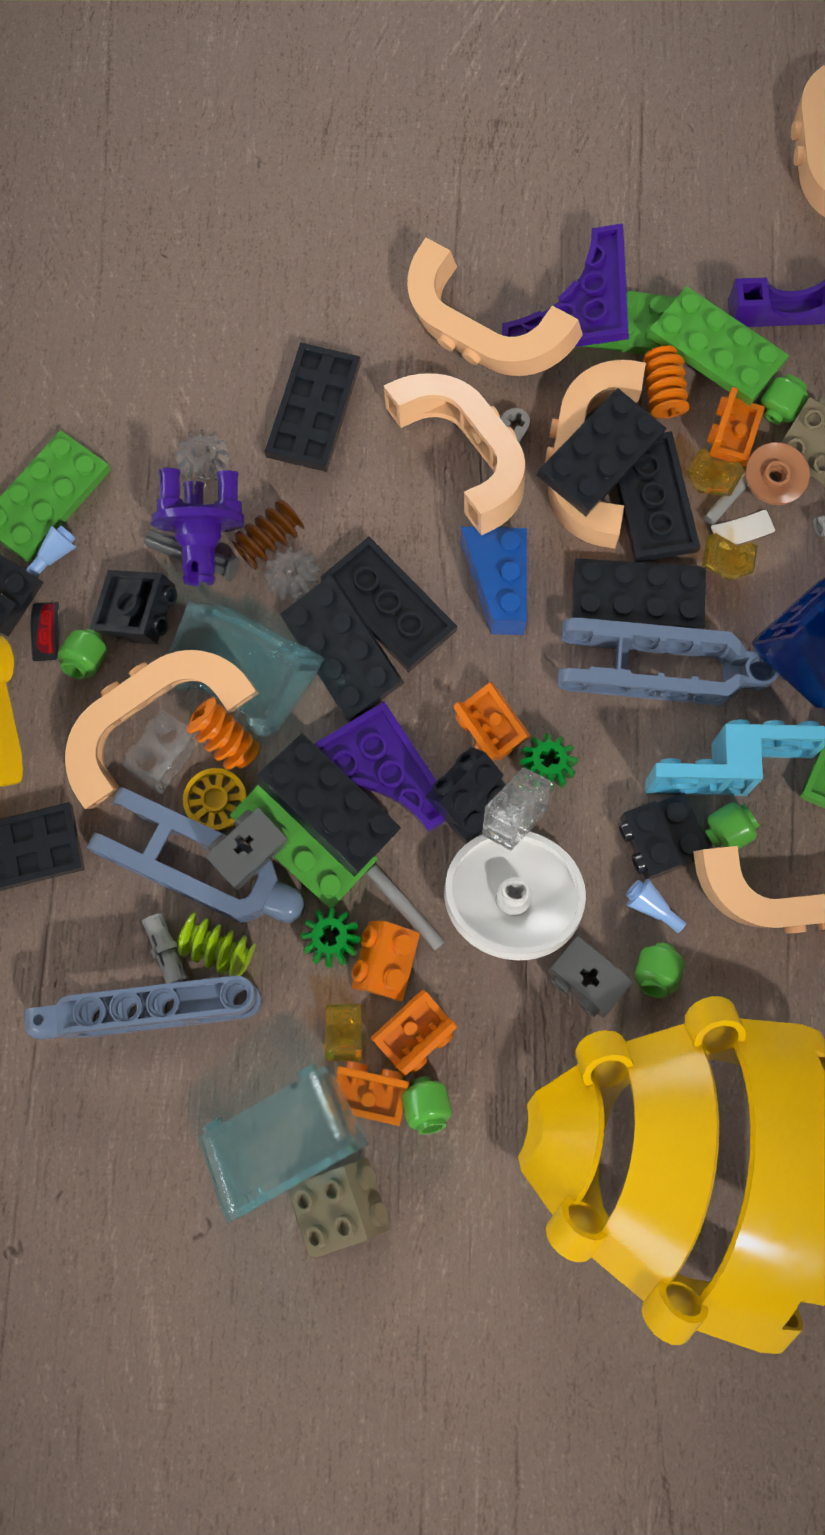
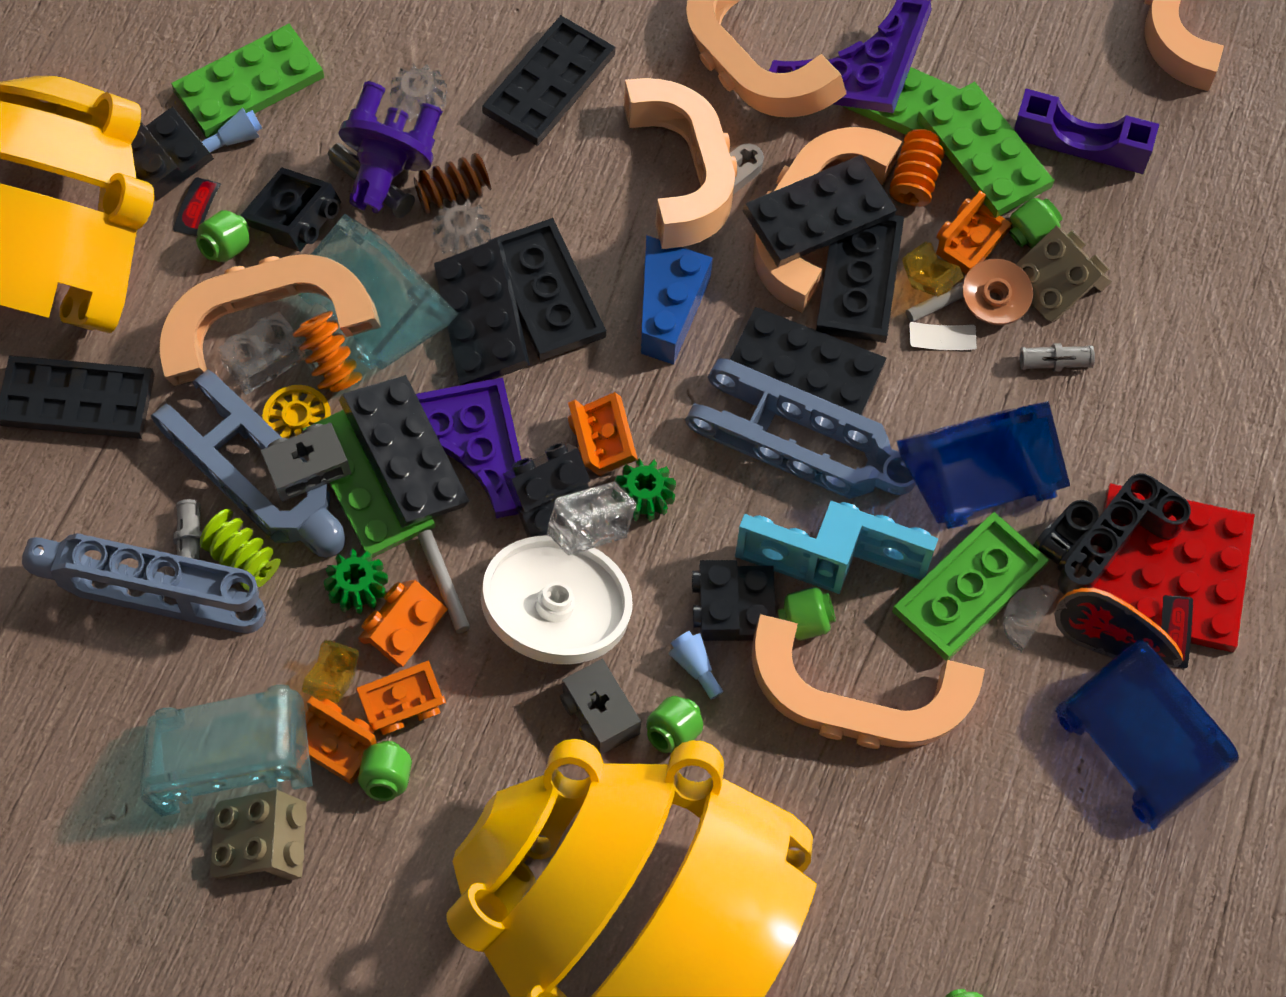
camera: 15 degrees right, 10 degrees down
(728, 558) = (912, 356): clear yellow bracket -> none

